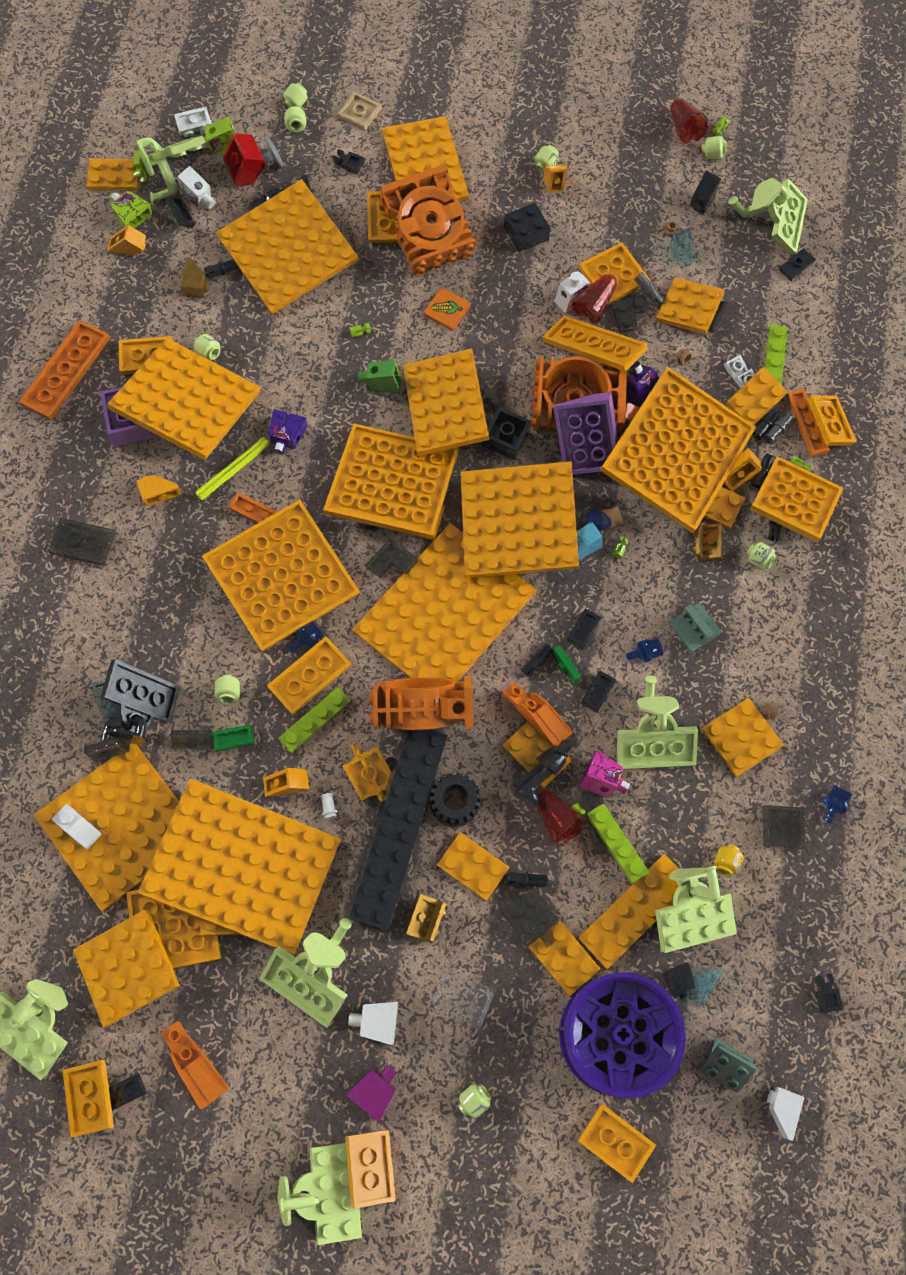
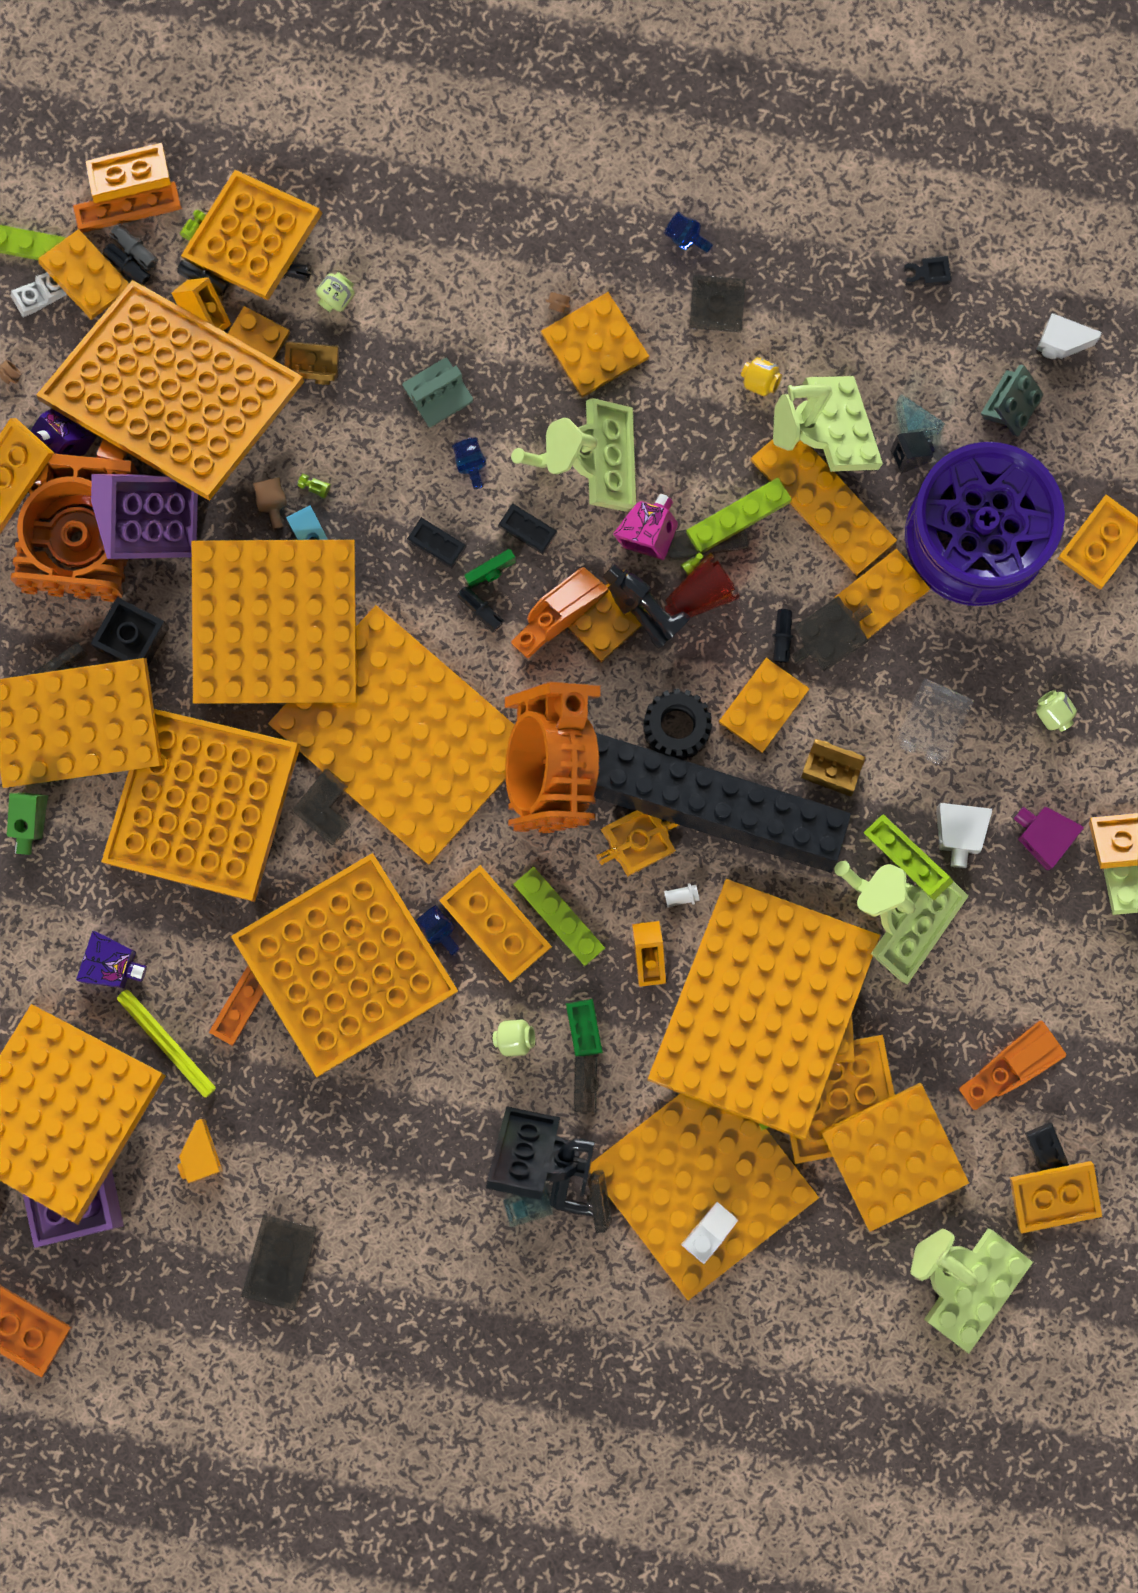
camera: 85 degrees left, 10 degrees up
(352, 975) = (908, 857): none -> lime plate
(599, 519) = (276, 510): clear blue piece -> none

